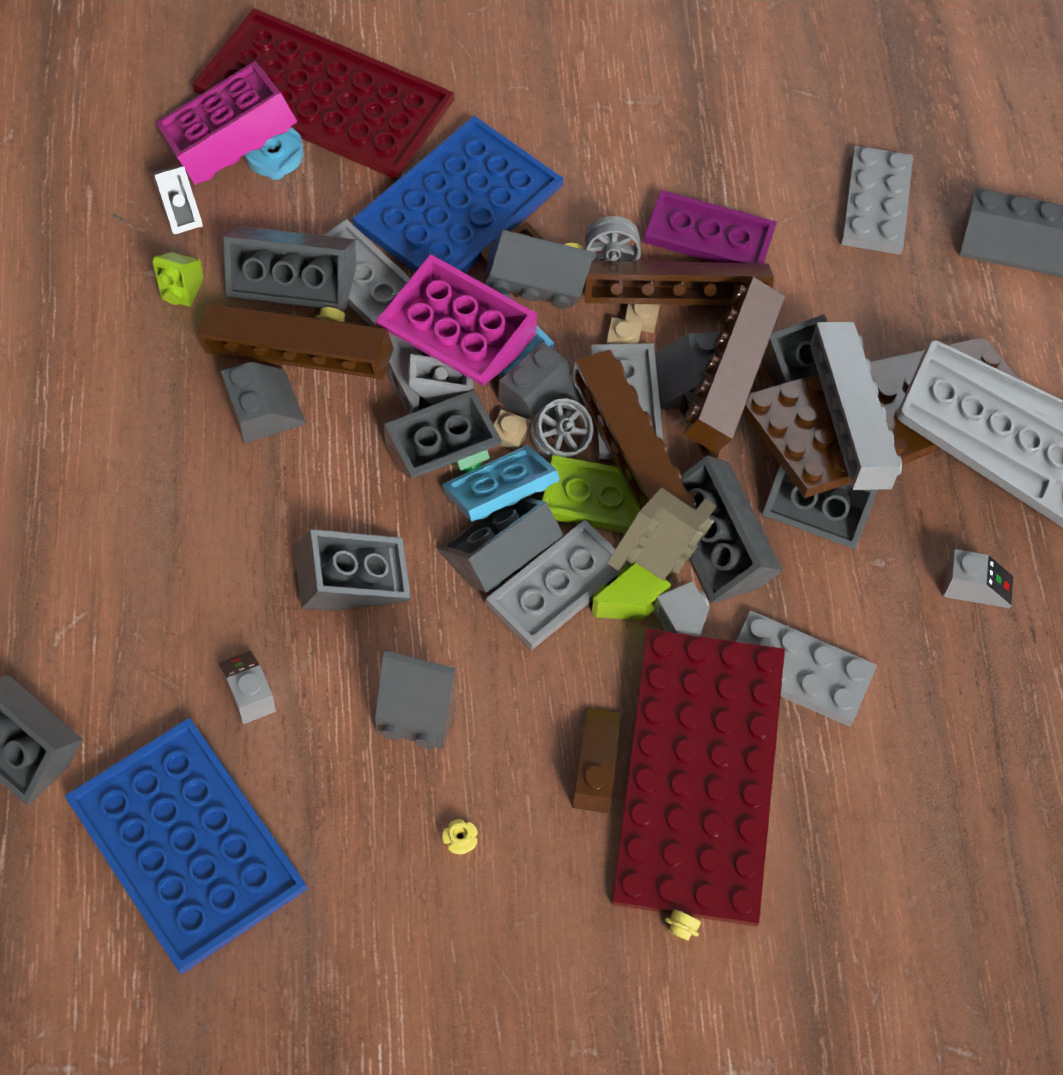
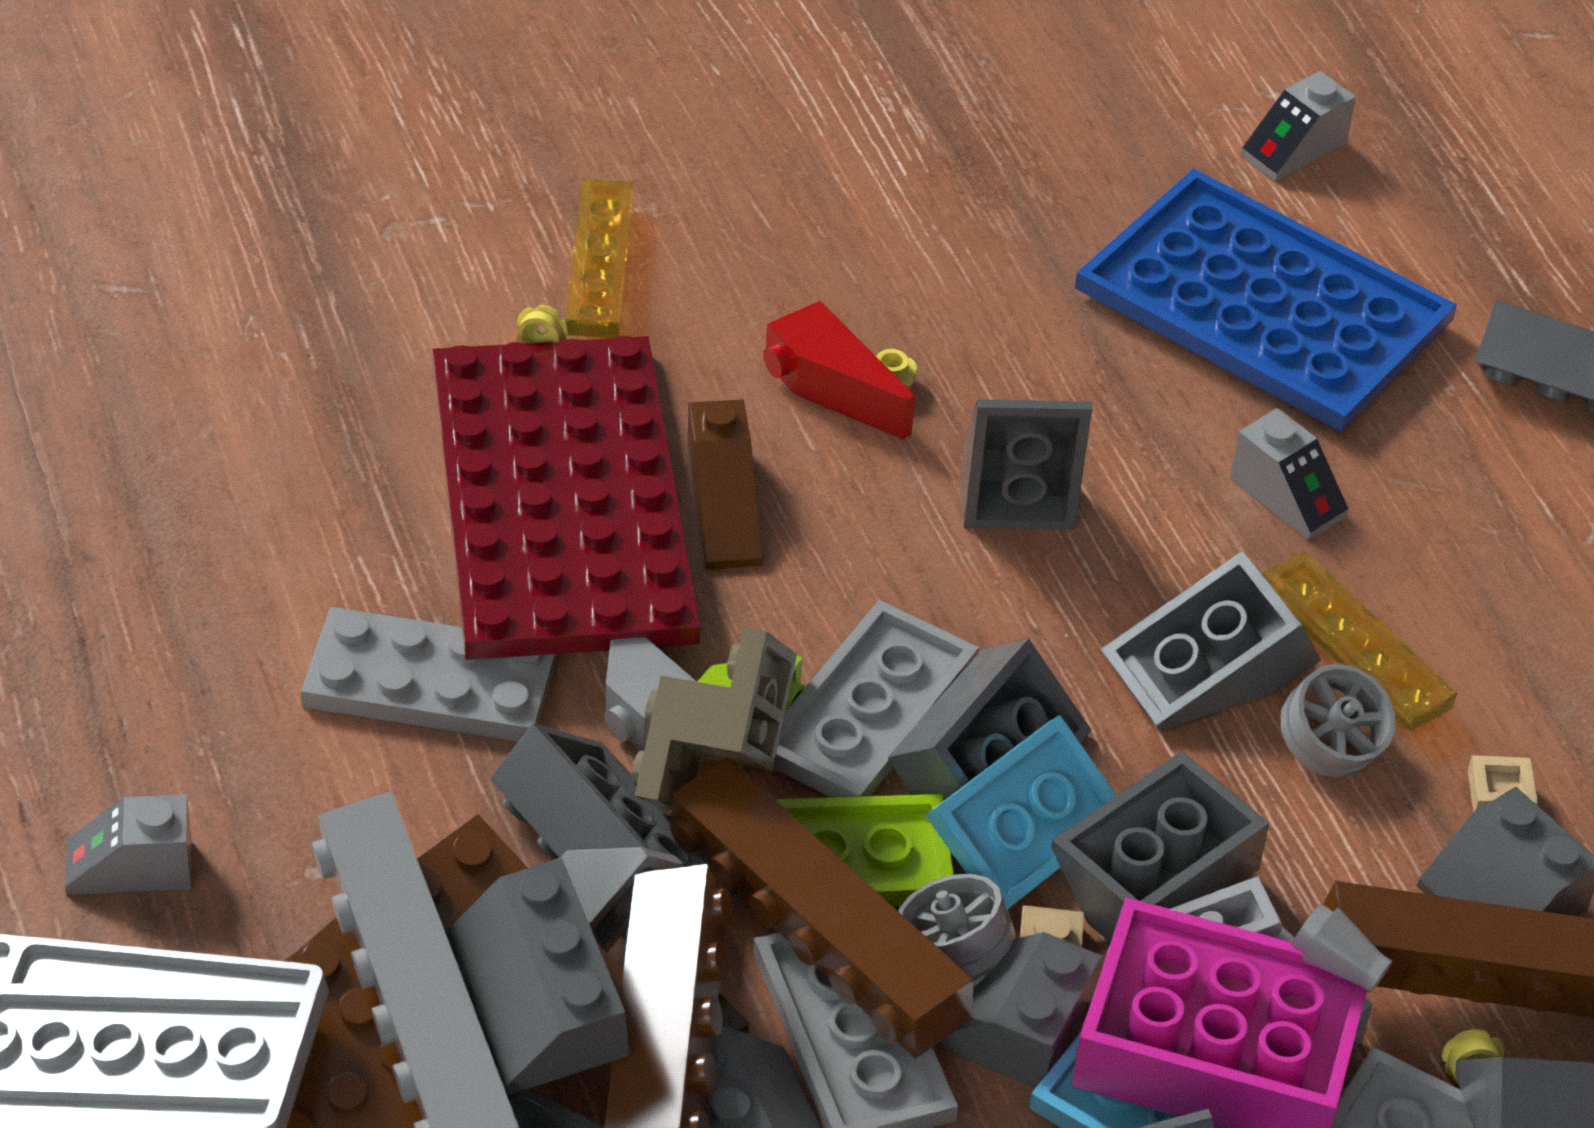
camera: 165 degrees right, 15 degrees down
(78, 1000) = (1301, 126): none -> slope
(234, 454) = (1496, 775): none -> tan plate
(265, 563) = (1360, 639): none -> clear yellow plate
(310, 500) = (1336, 721): none -> light grey wheel
(396, 318) = (1339, 947): none -> light grey cone
(501, 840) = (834, 369): none -> red slope
(627, 988) = (600, 258): none -> clear yellow plate
(742, 467) = (606, 885): none -> light grey slope
(793, 383) = (538, 979): none -> dark grey slope

